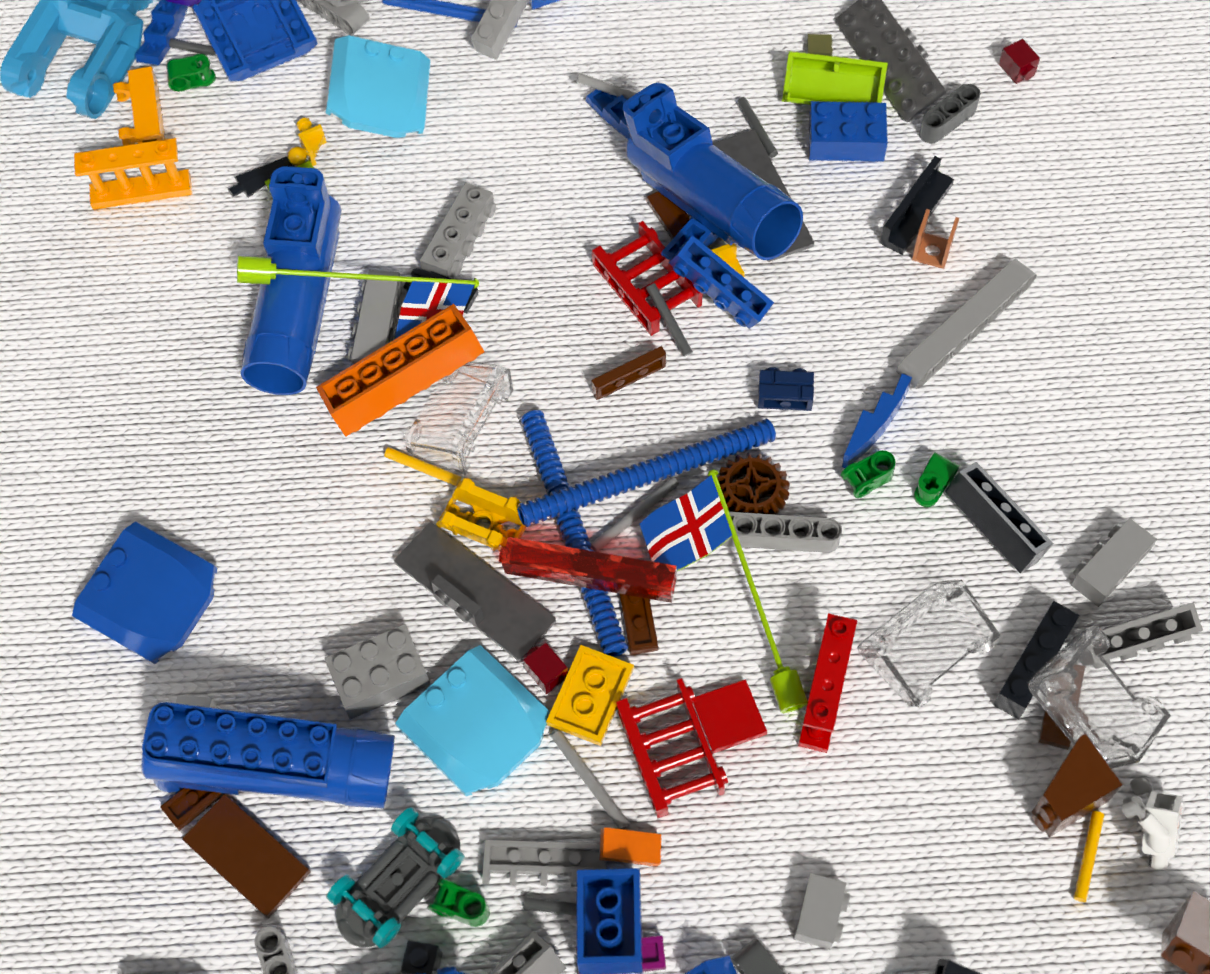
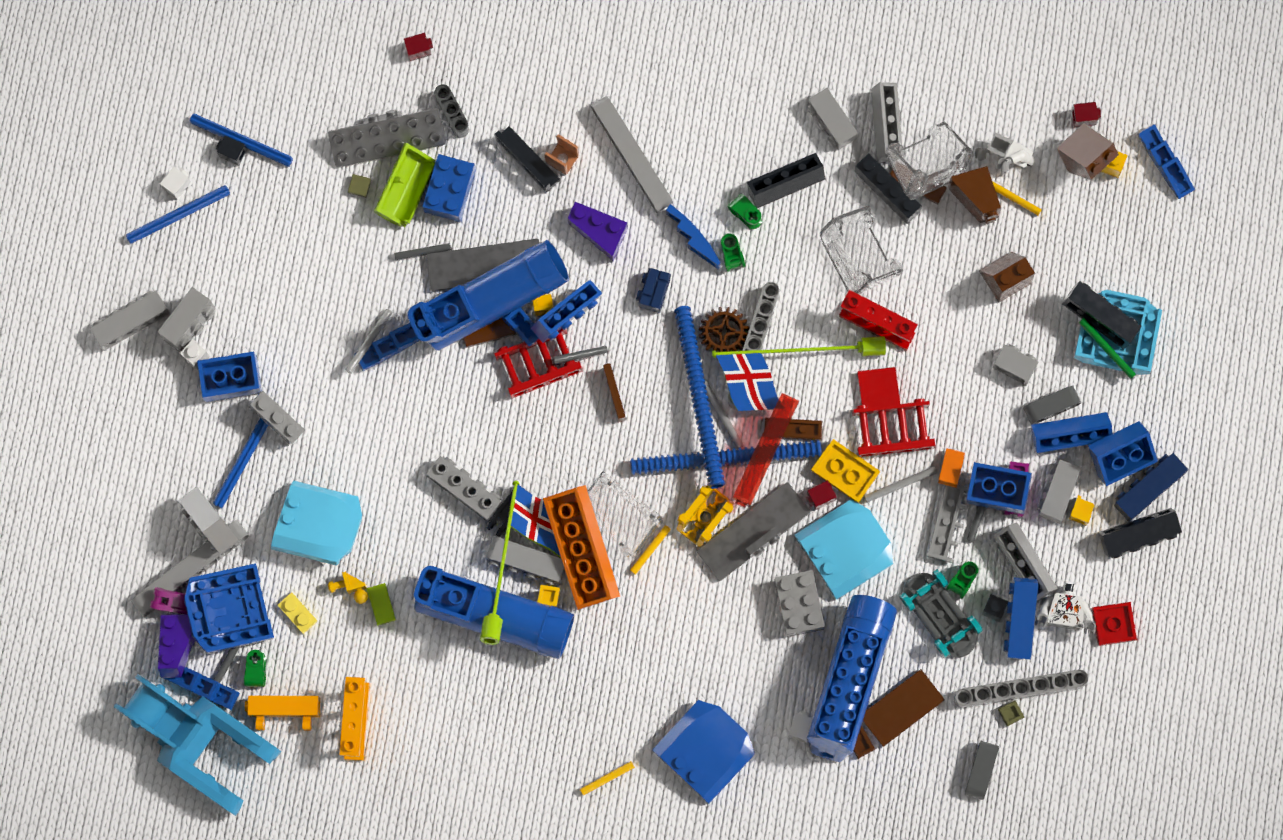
camera: 75 degrees left, 15 degrees up
(97, 482) = (607, 778): none -> yellow bar
(255, 179) = (370, 631): black bar -> none
(267, 101) = (297, 613): none -> light yellow plate
(329, 351) = (549, 595): none -> yellow panel
(848, 306) = (599, 228): none -> dark purple wedge
(956, 866) = (1008, 275): none -> reddish brown slope

